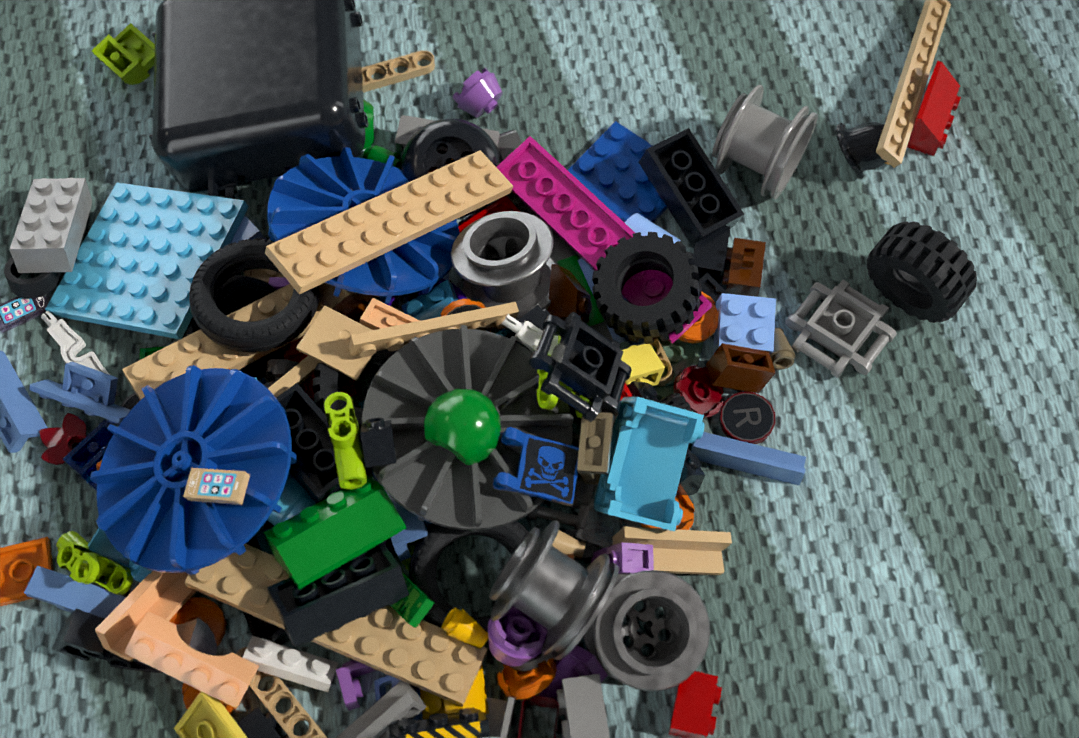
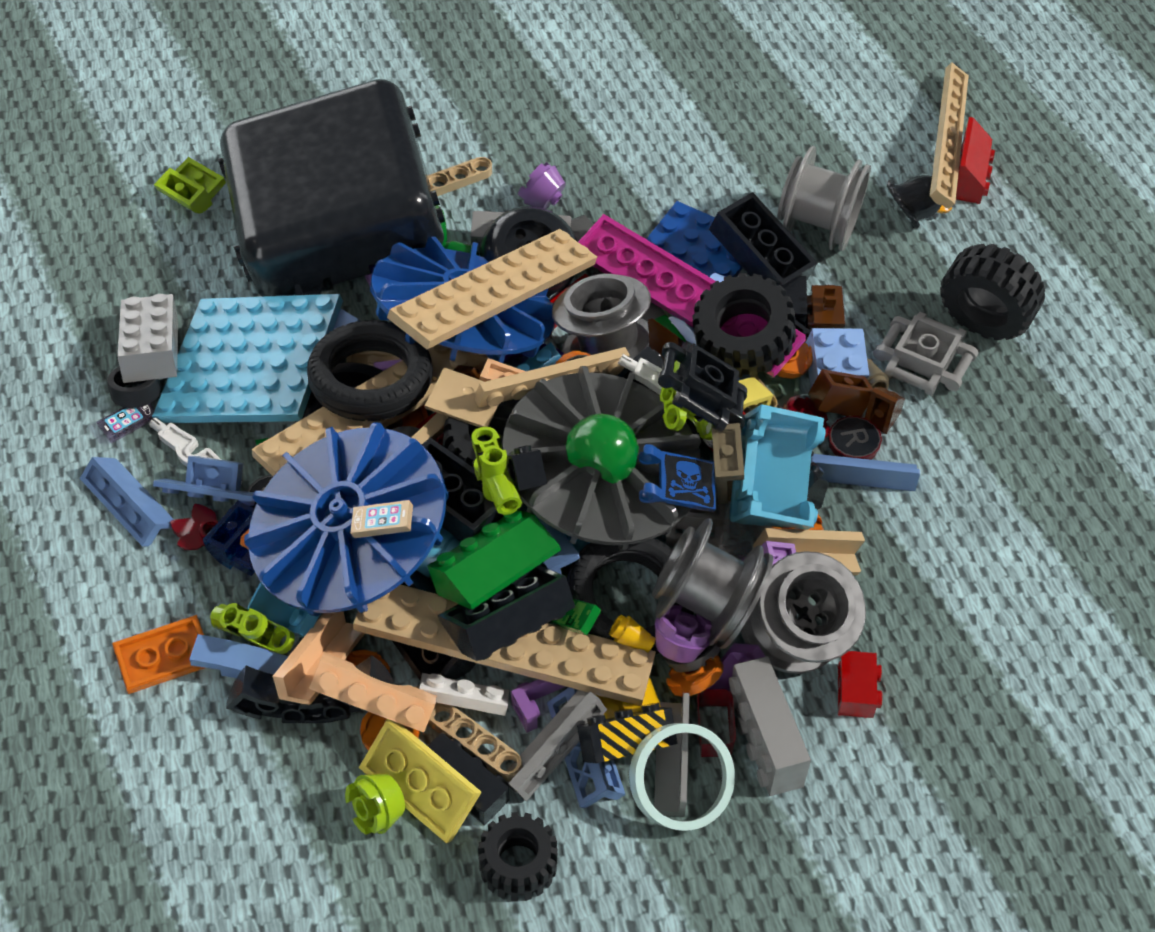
camera: 10 degrees left, 10 degrees down
(783, 388) = (884, 408): none -> reddish brown slope

